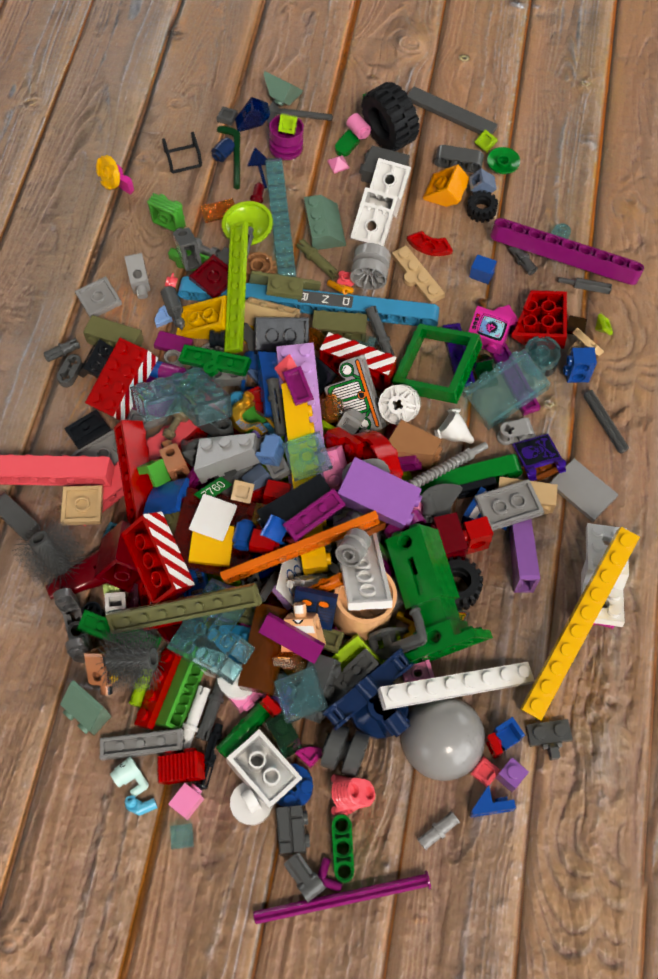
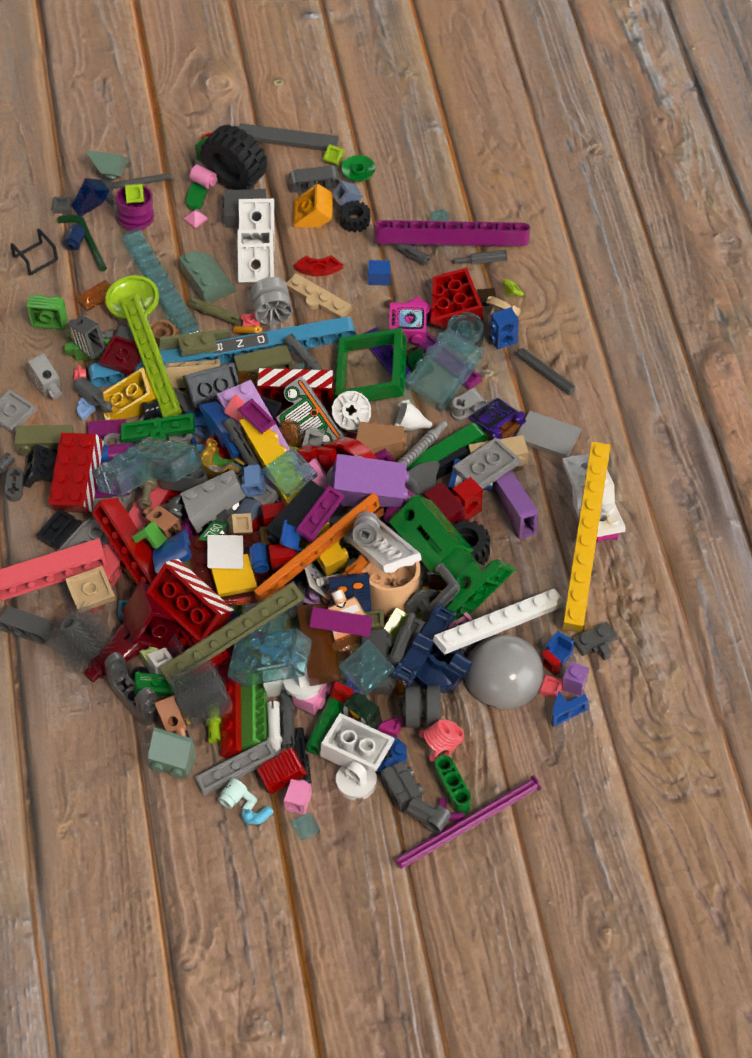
camera: 20 degrees left, 10 degrees down
(258, 159) = (114, 237): clear blue piece -> none
(258, 193) = (128, 267): dark red axle -> none
(347, 677) = (401, 641): none -> dark grey axle
(438, 830) = (529, 743): light grey pin -> none

